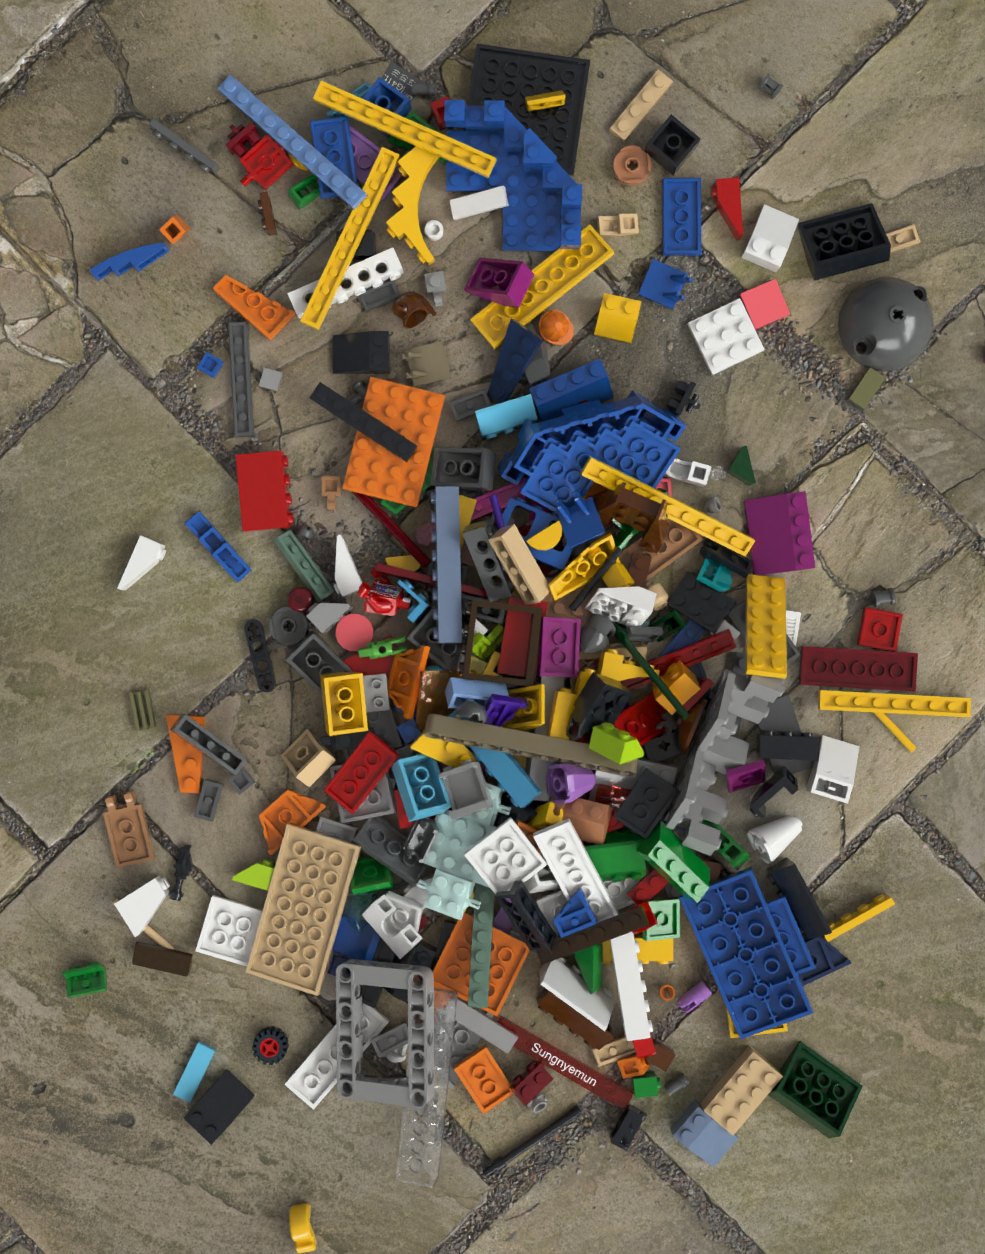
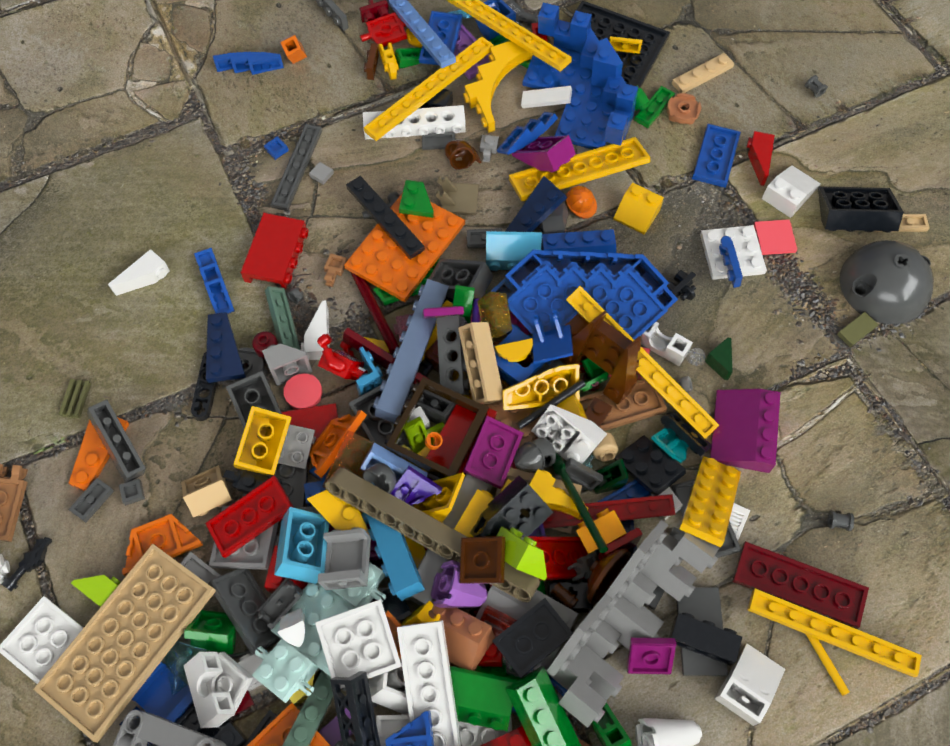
camera: 15 degrees right, 25 degrees down
(258, 310) = (332, 120): orange wing -> none
(264, 624) = (222, 351): none -> dark blue wing
(289, 212) = (389, 60): none -> yellow hinge
(362, 353) = (403, 168): black slope -> none
(373, 650) = (313, 409): bright green hinge -> none
(387, 391) = (415, 200): none -> green wing
(433, 230) = (502, 109): white tile -> none
(442, 858) = (293, 627): none -> white tile
(467, 528) = (442, 312): none -> magenta tile
(470, 264) = (525, 135): none -> blue slope
(480, 505) = (464, 297): none -> green slope
(508, 660) = (437, 440): none -> orange hinge
(516, 508) = (495, 310): none -> clear yellow brick
(581, 174) = (642, 100): none -> green brick
(587, 761) = (482, 560): none -> reddish brown tile
(599, 171) = (657, 104): none -> green tile
(617, 225) = (660, 147): tan slope -> none
(660, 752) = (564, 596): none -> reddish brown pin
(664, 284) = (687, 197): blue plate -> none
(672, 144) = (722, 100): black brick -> none
(727, 356) = (731, 261): none -> blue hinge
(766, 791) = (672, 677): black panel -> none
(879, 629) = (830, 552): red tile -> none

